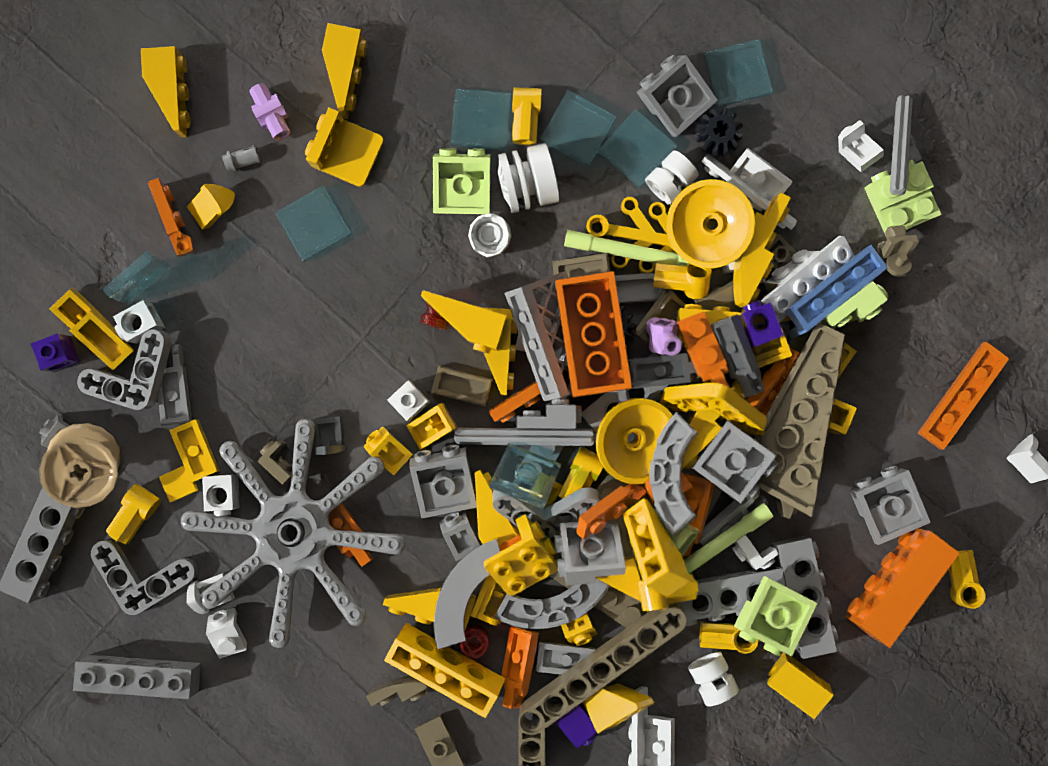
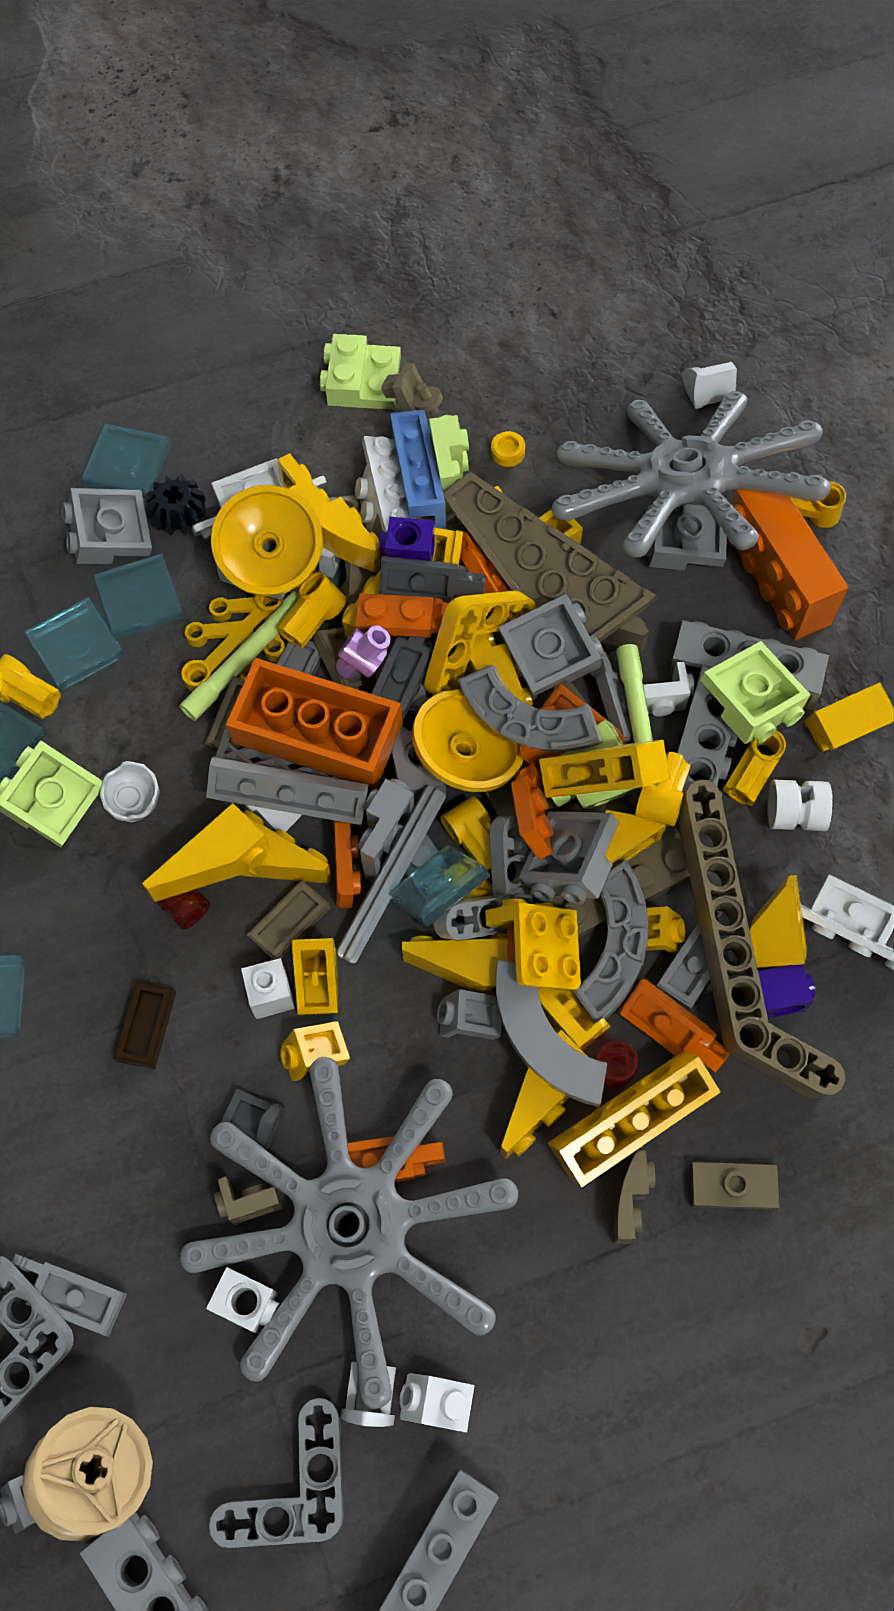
camera: 60 degrees left, 20 degrees down
(137, 506) = (193, 1437): yellow piece -> none
(177, 484) = (197, 1359): yellow tile -> none
(194, 450) = (165, 1309): yellow plate -> none
(350, 335) = (145, 1025): none -> dark brown tile
(442, 481) = (392, 999): light grey plate -> none
(528, 178) = (92, 712): white wheel -> none
(674, 174) = (193, 571): white wheel -> none
(859, 147) = (280, 386): white bracket -> none
(895, 339) = (508, 449): none -> yellow tile
(901, 145) = (304, 343): light grey axle -> none
(929, 491) = (690, 473): none -> light grey animal
(963, 395) = (601, 406): orange plate -> none

